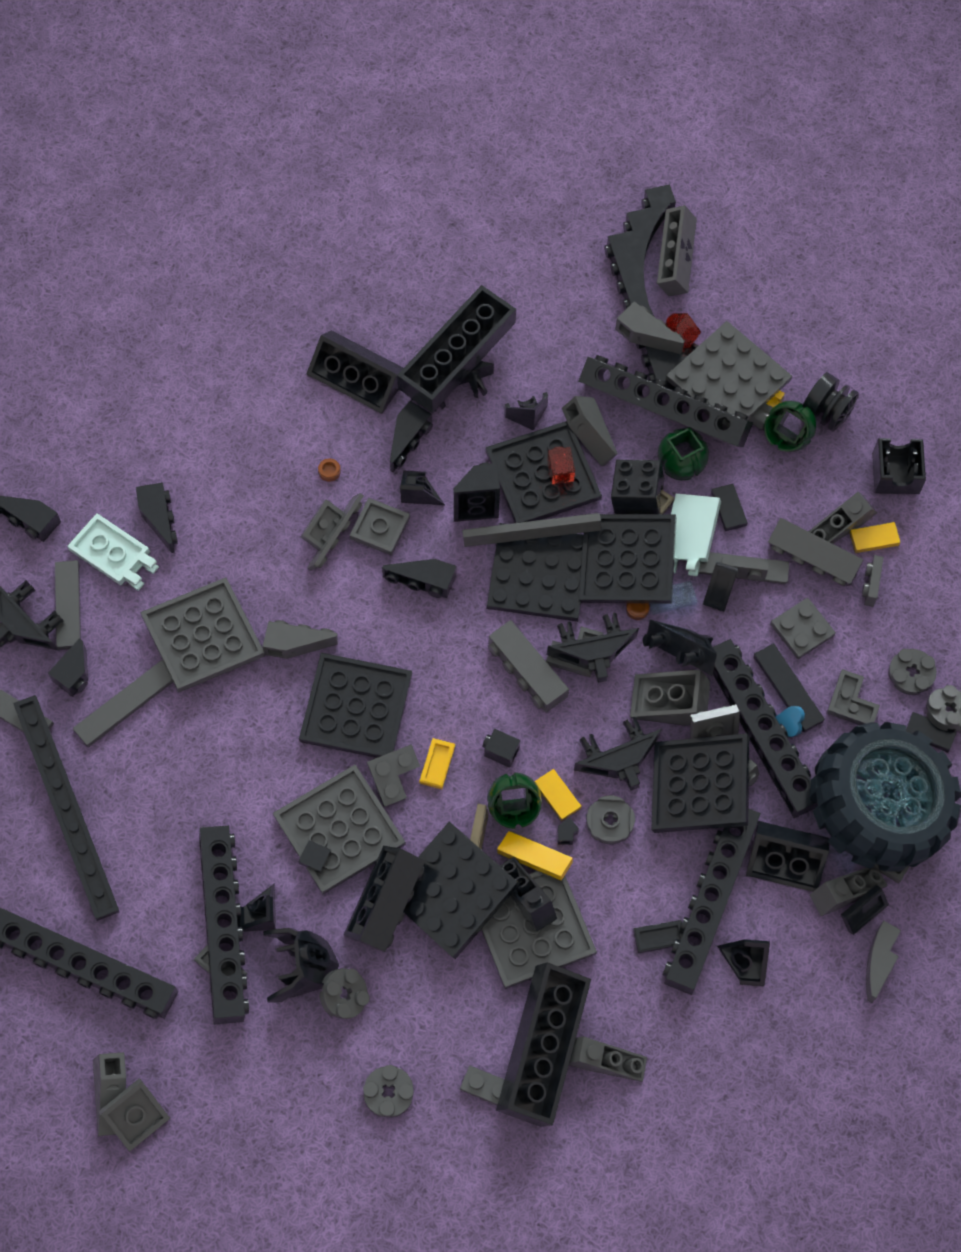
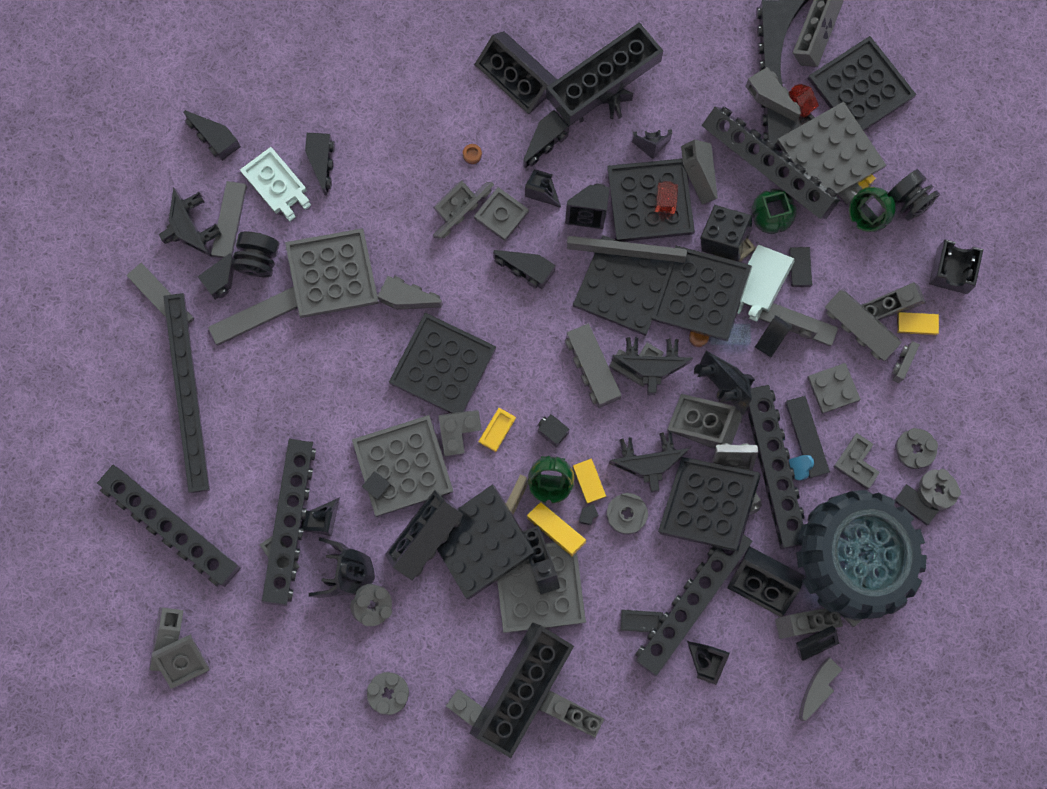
camera: 15 degrees right, 10 degrees up
(109, 633) = (255, 254): none -> black wheel
(744, 297) = (864, 82): none -> black plate

